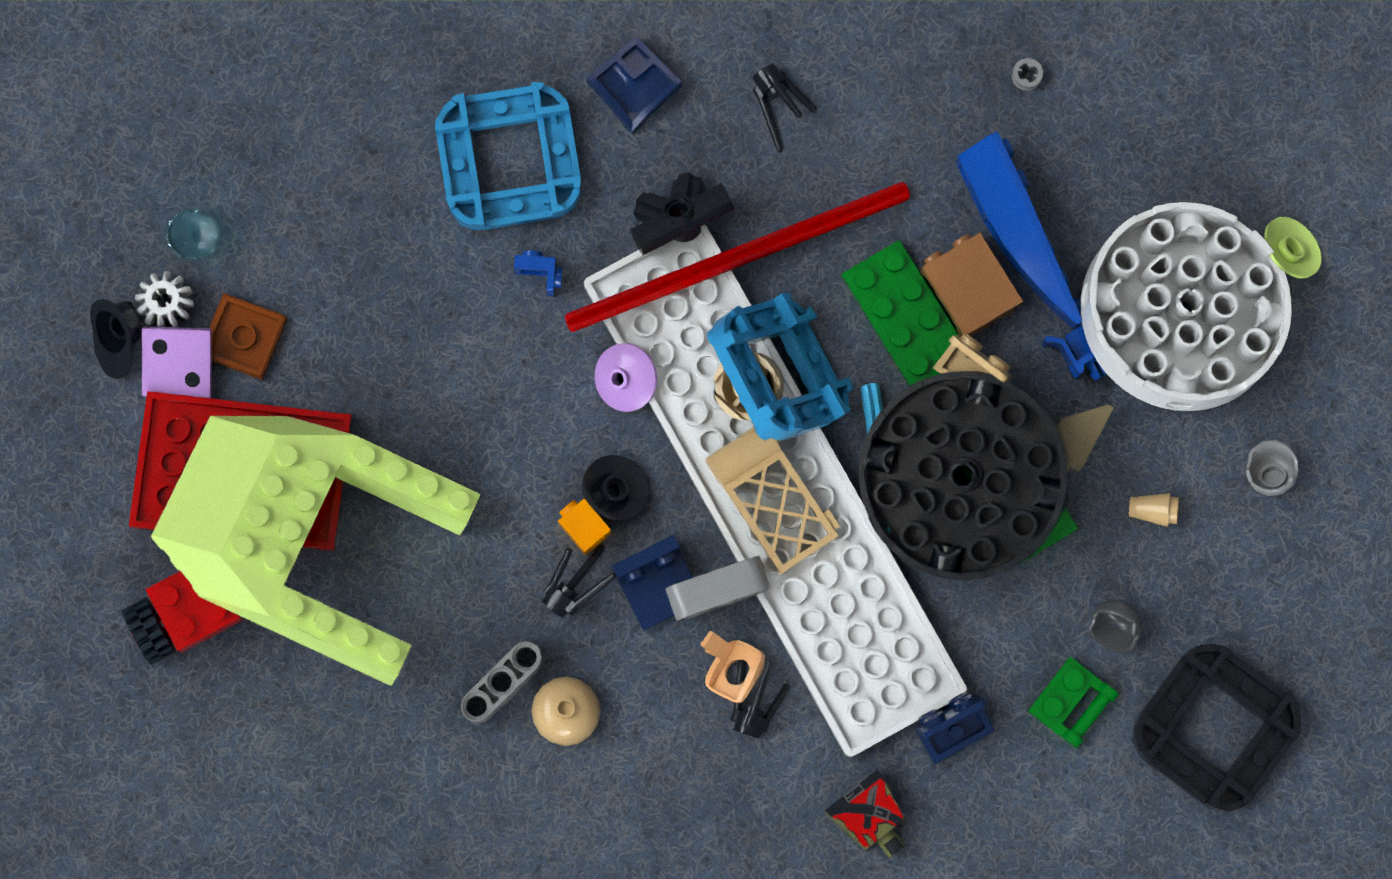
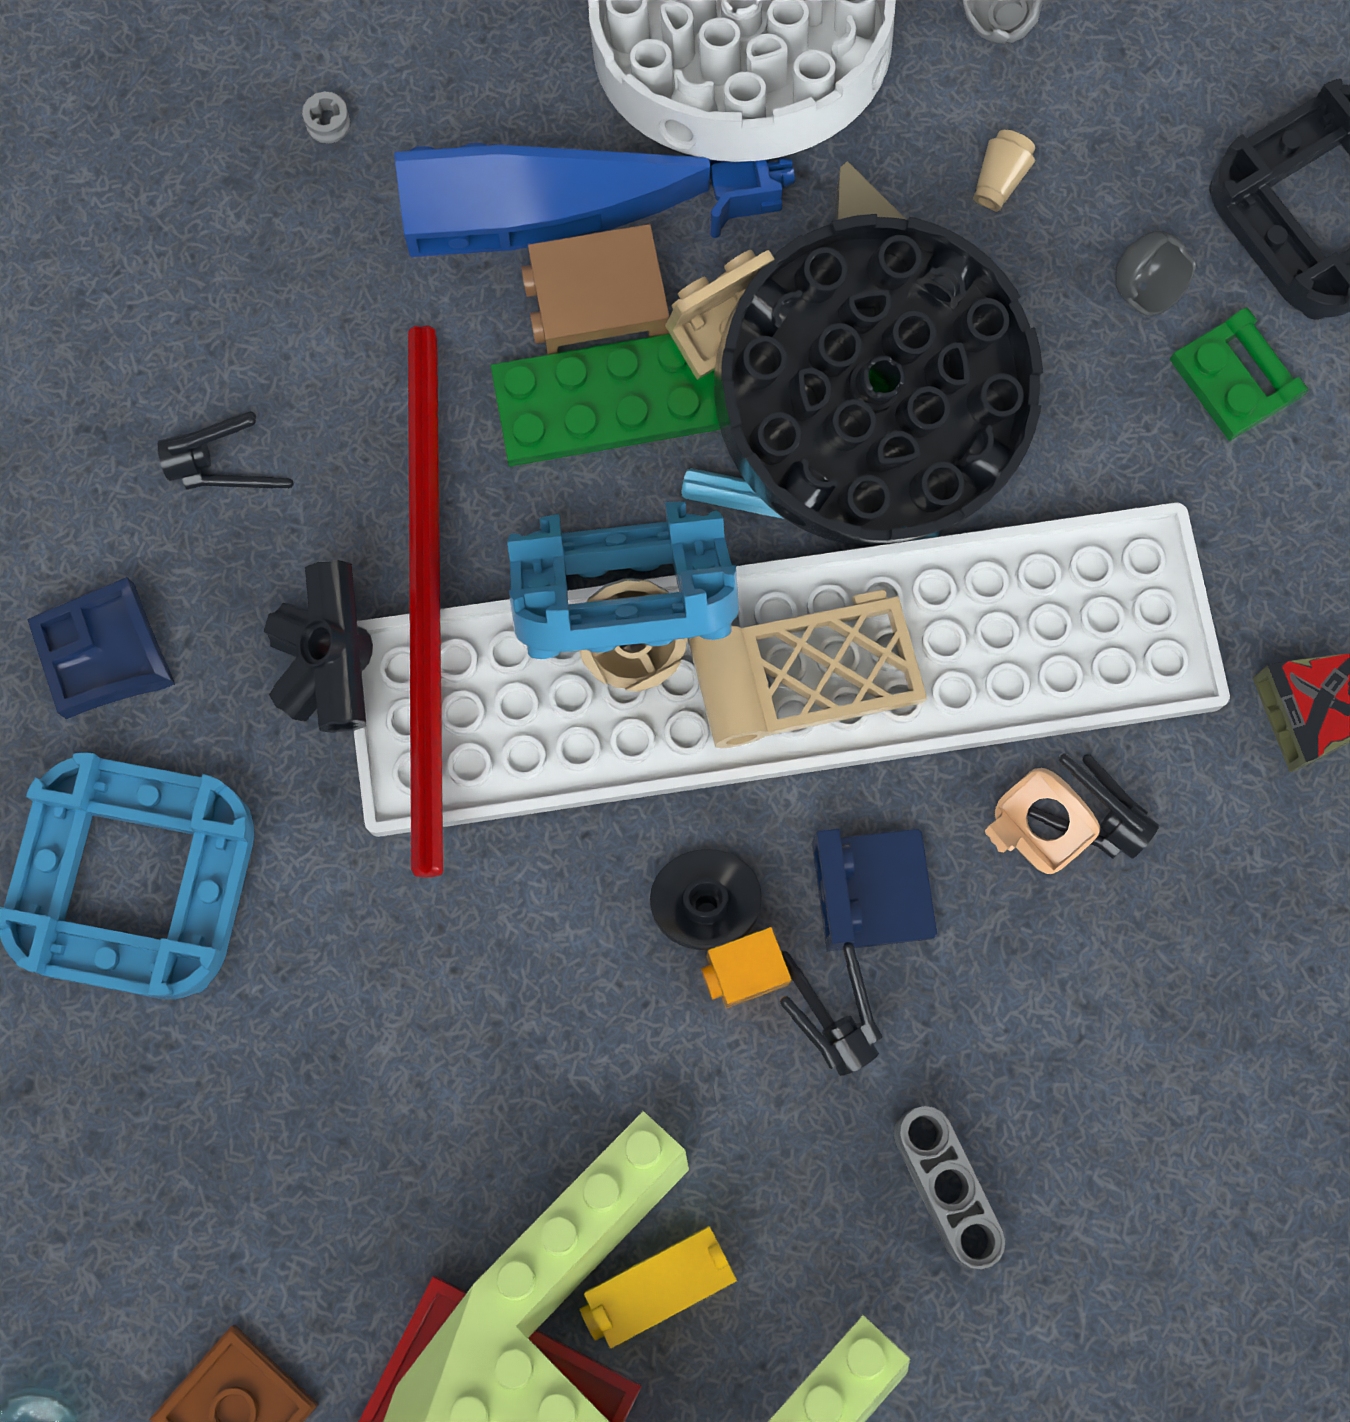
camera: 70 degrees left, 5 degrees down
(389, 539) = (656, 1288): none -> yellow brick
(535, 264) = (310, 897): blue bracket -> none
(566, 711) = (1022, 1102): tan cylinder -> none
(638, 375) = (535, 798): lavender dish -> none
(718, 588) = (918, 798): light grey beam -> none
(953, 727) = (1229, 536): dark blue bracket -> none

